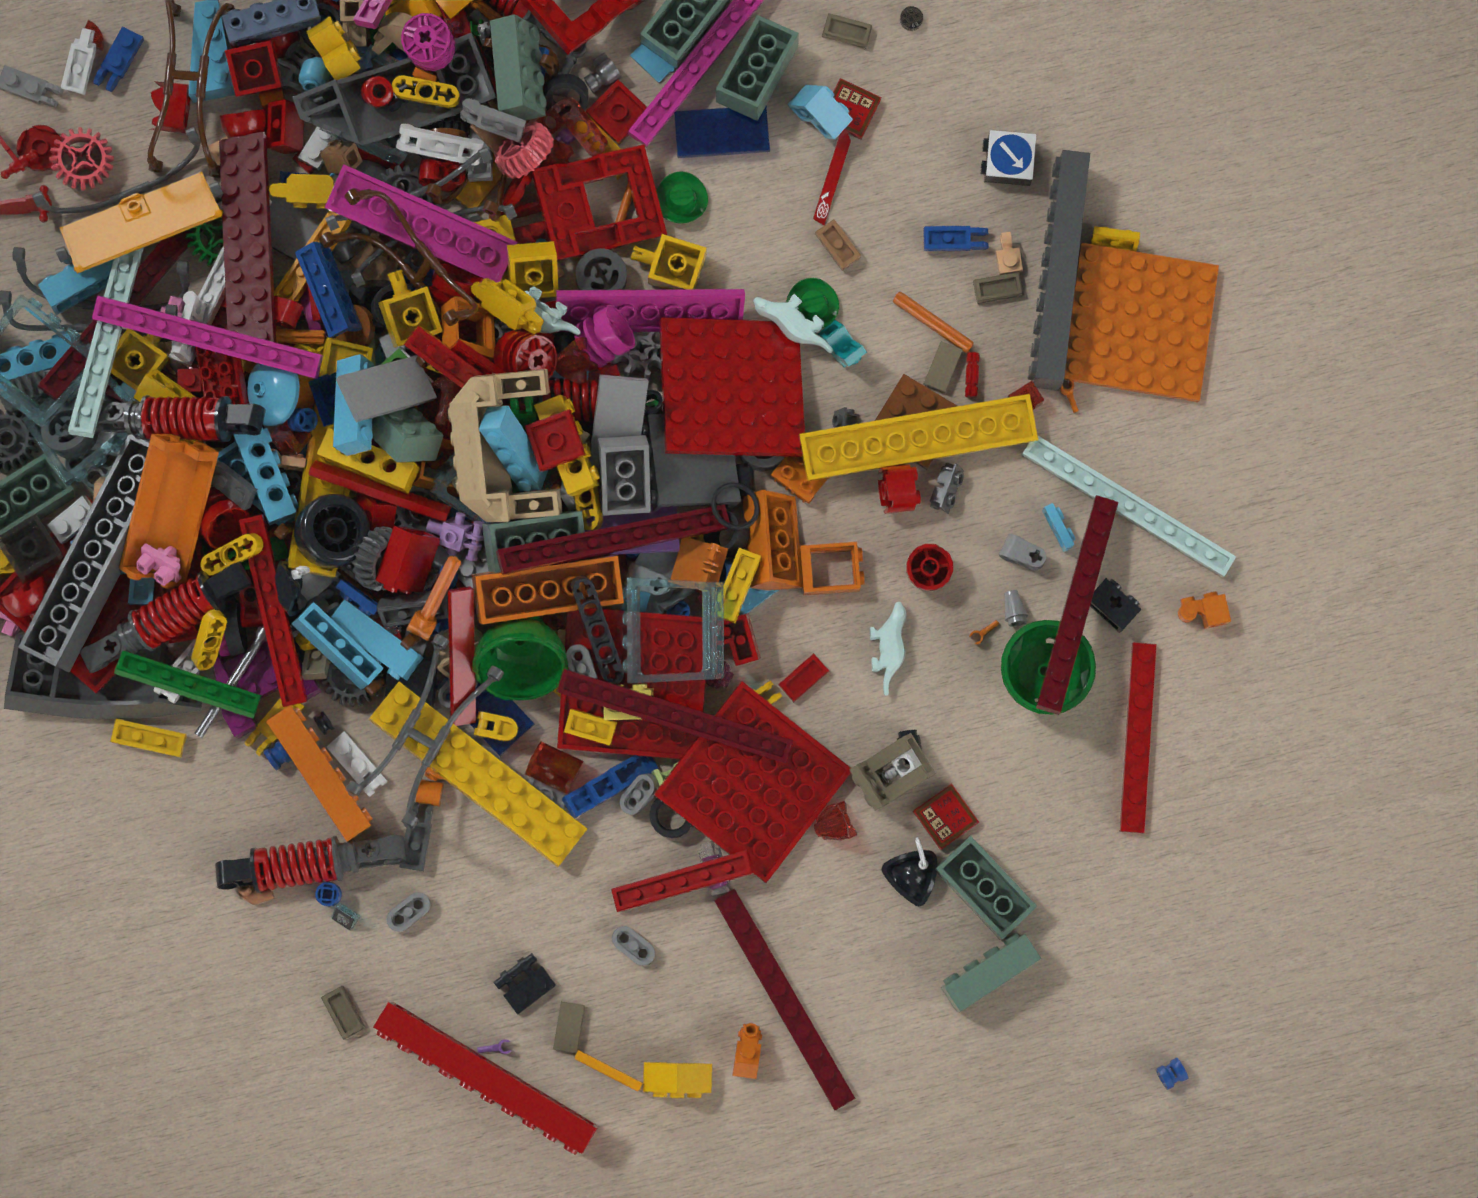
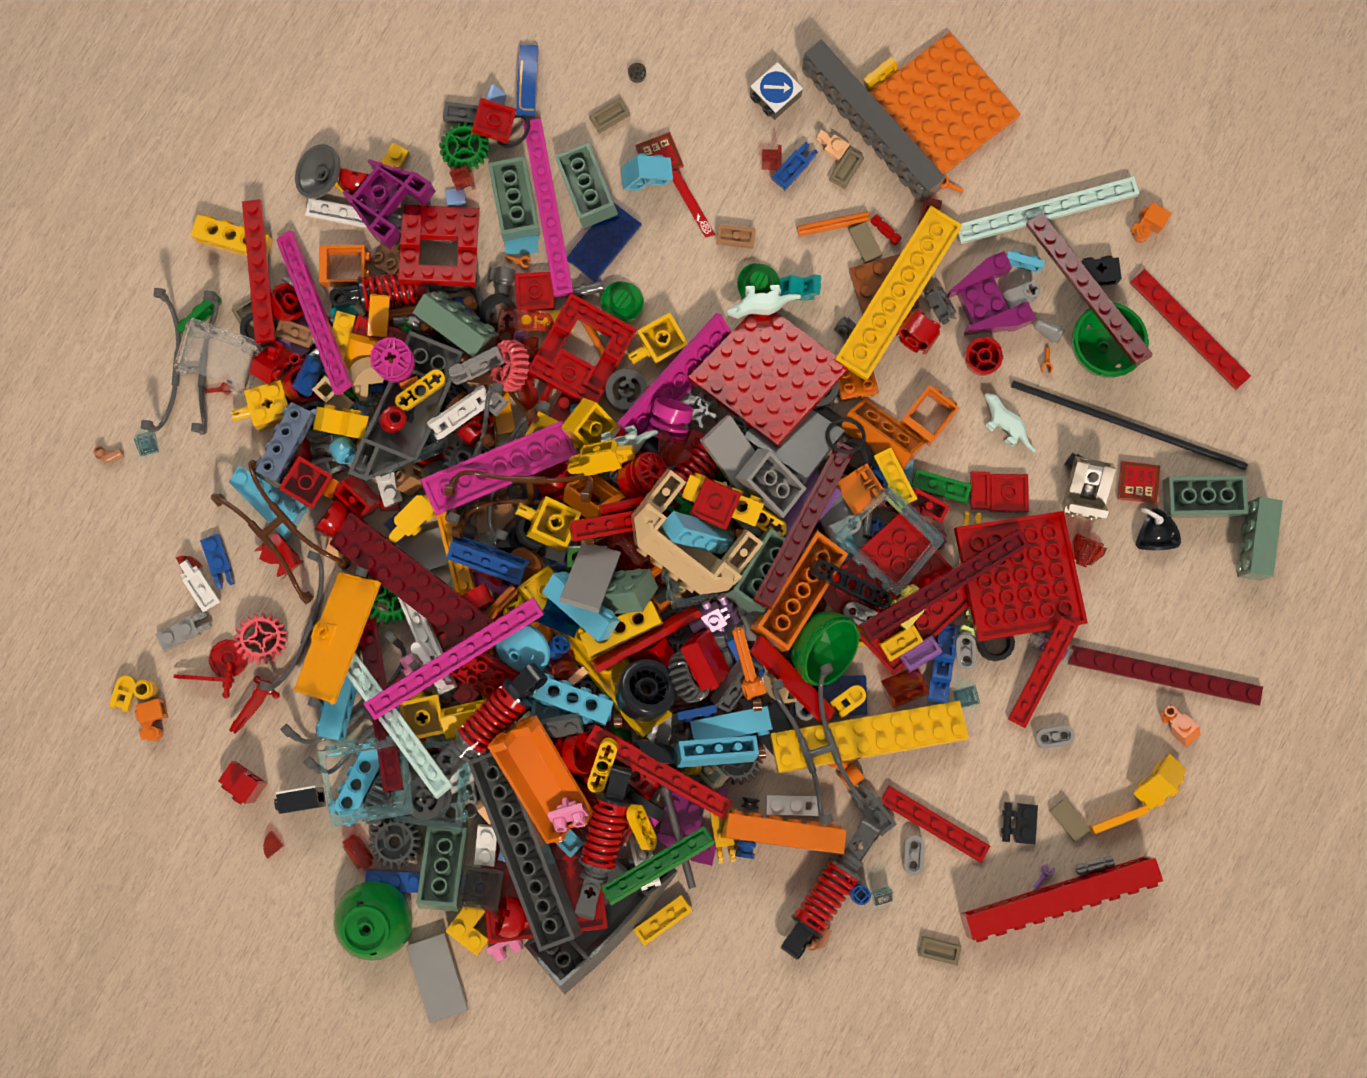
camera: 45 degrees left, 0 degrees up
(454, 907) = (935, 824): none -> red tile
(547, 1086) = (1094, 865): none -> light grey axle
(597, 754) = (921, 654): none -> medium lavender tile
(599, 833) = (967, 696): none -> clear light blue slope
(634, 71) = (519, 260): none -> orange hand
(664, 157) = (587, 289): none -> dark grey pin
(774, 638) = (941, 486): none -> green plate
(825, 706) = (1009, 493): none -> red tile
(942, 211) = (772, 158): none -> clear red panel
(986, 524) = (984, 301): none -> magenta wedge
(993, 762) = (1129, 425): none -> black piece

